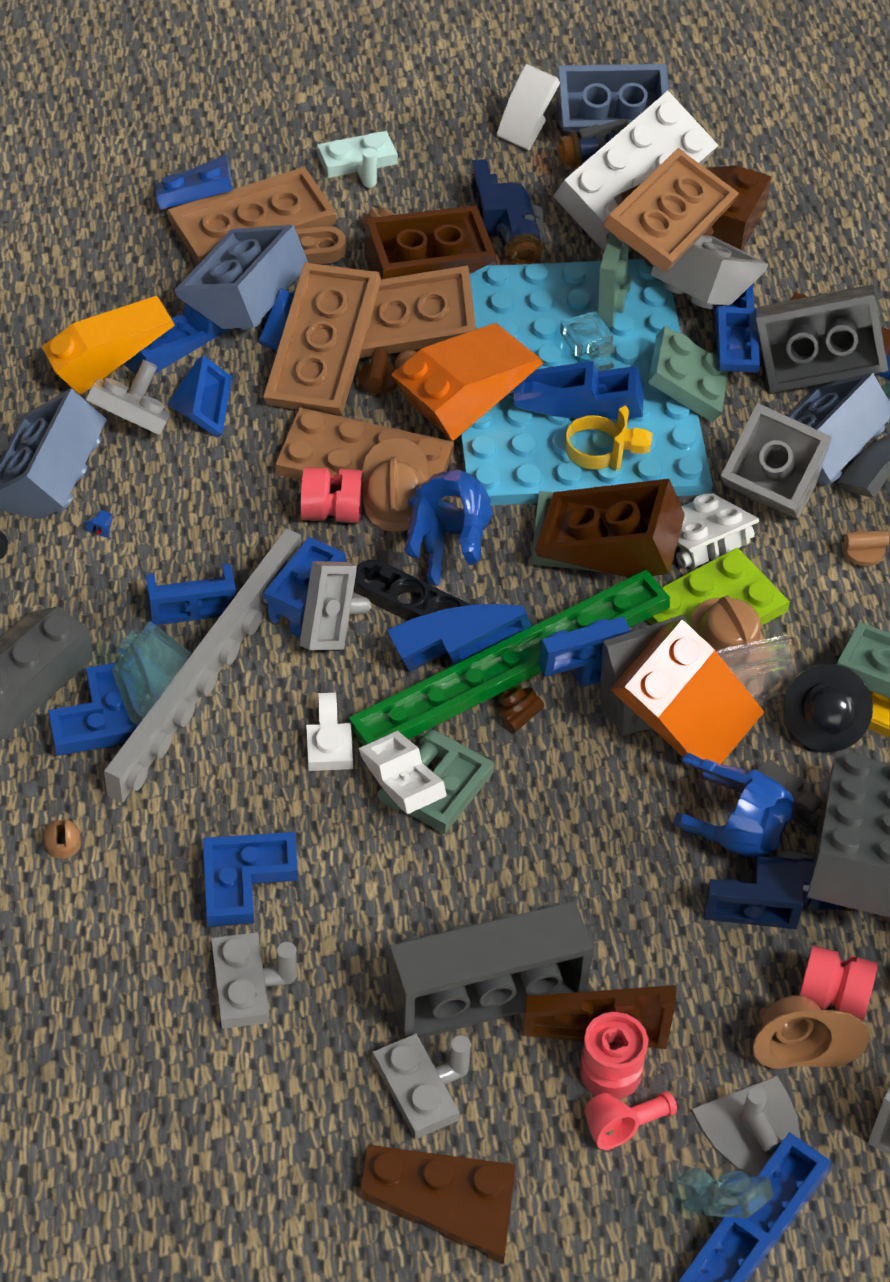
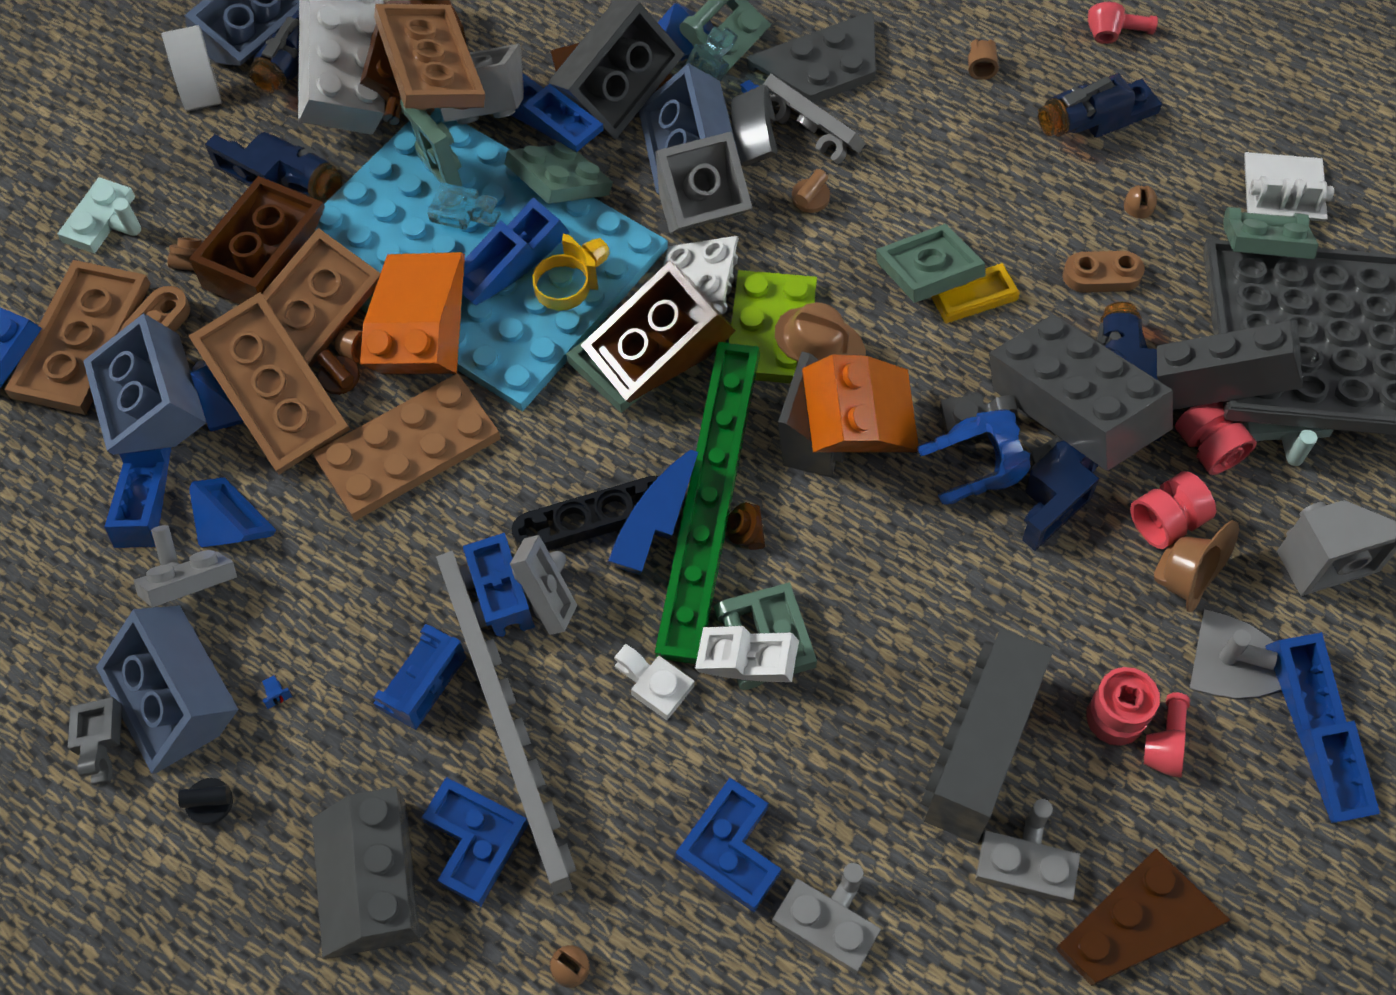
camera: 45 degrees left, 10 degrees up
(105, 342) = (102, 543): light orange slope -> none
(146, 668) = (479, 772): clear light blue slope -> none
(331, 494) = (417, 508): coral wheel -> none
(390, 479) = (461, 444): medium nougat piece -> none
(434, 517) = (520, 434): blue piece -> none
(569, 1014) = (1080, 688): reddish brown wing -> none
(579, 650) = (762, 427): blue plate -> none
(730, 1196) = (1303, 722): clear light blue plate -> none
(762, 668) = (870, 335): clear plate -> none
(828, 707) = (937, 327): black plate -> none

